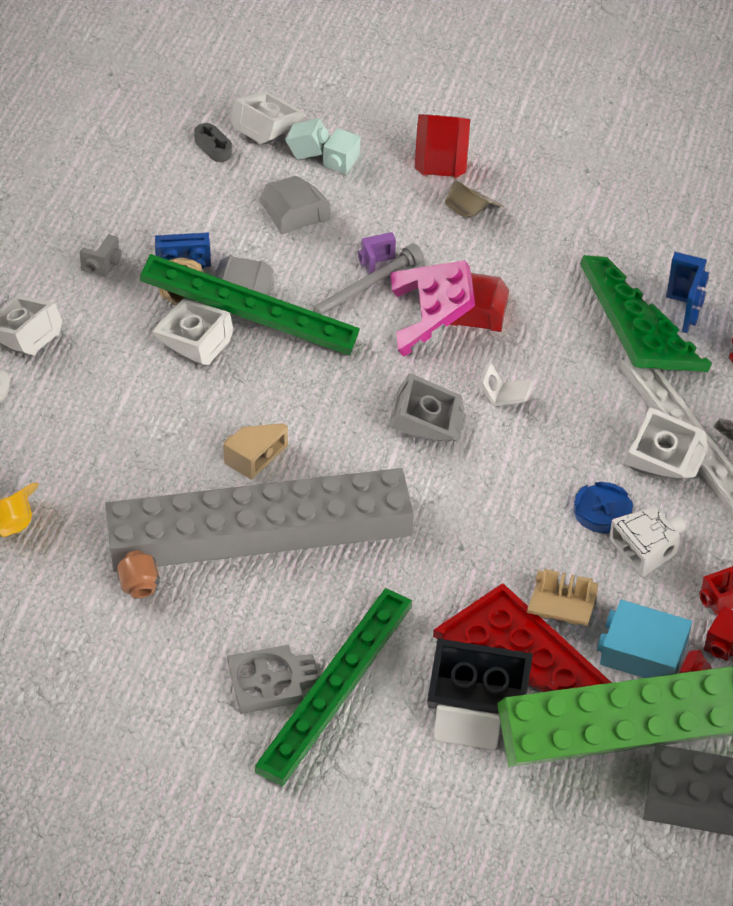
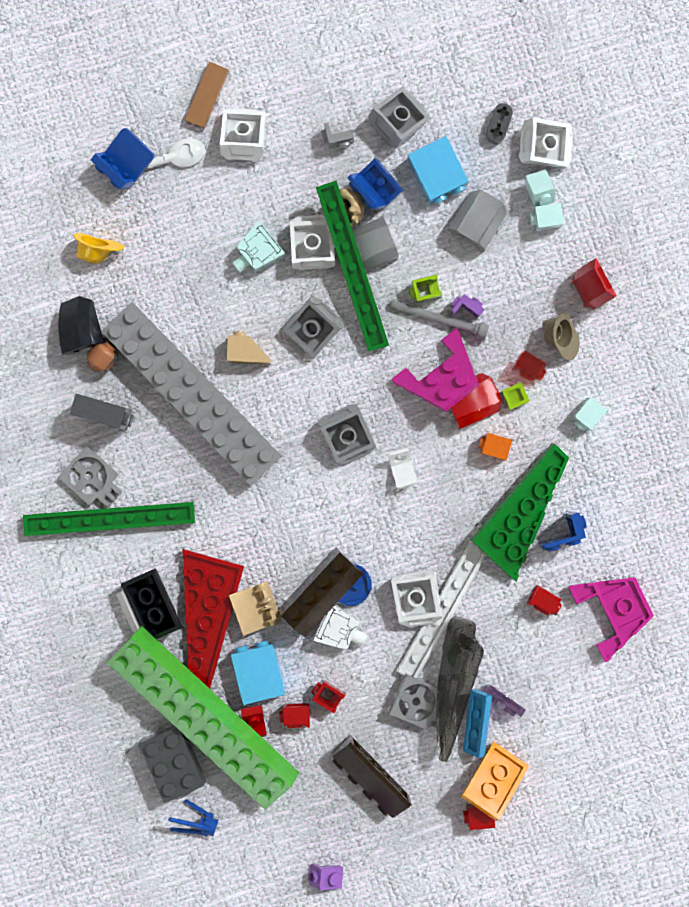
camera: 60 degrees right, 40 degrees up
(81, 574) = (78, 325): none -> black slope
(132, 204) = (398, 117): none -> light grey slope
(155, 378) = (258, 250): none -> light aqua torso
(203, 605) = (101, 412): none -> dark grey brick
(215, 203) = (438, 170): none -> medium azure brick
(283, 379) = (312, 328): none -> light grey slope
(326, 277) = (433, 287): none -> lime window
(484, 237) = (530, 367): none -> clear red window
(504, 264) = (515, 396): none -> lime plate
(546, 304) = (495, 446): none -> orange brick
(573, 219) = (589, 414): none -> light aqua brick
(589, 521) = (320, 592): none -> dark brown slope

